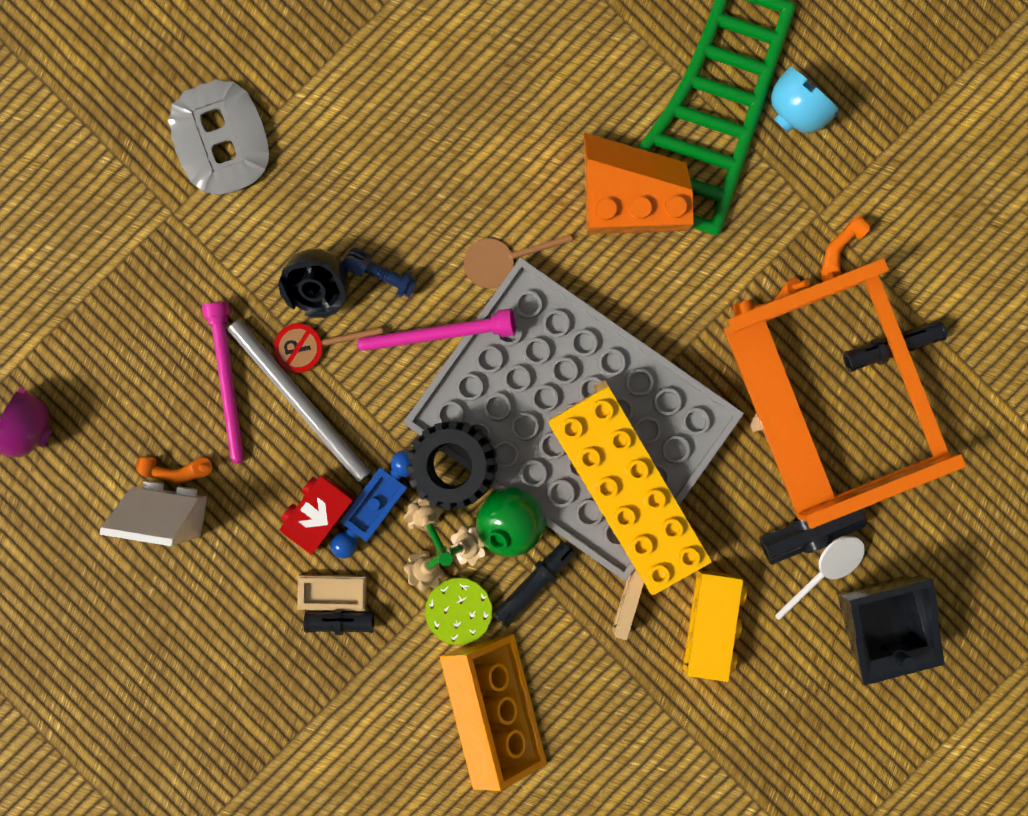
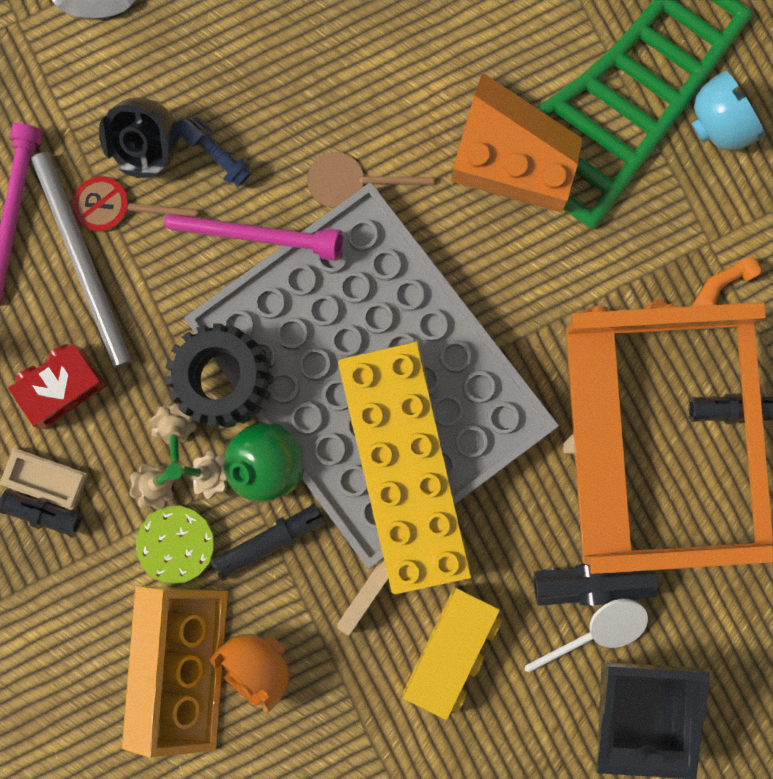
camera: 15 degrees right, 5 degrees down
(371, 506) = (117, 399): blue plate -> none
(559, 690) = (254, 668): none -> orange cylinder

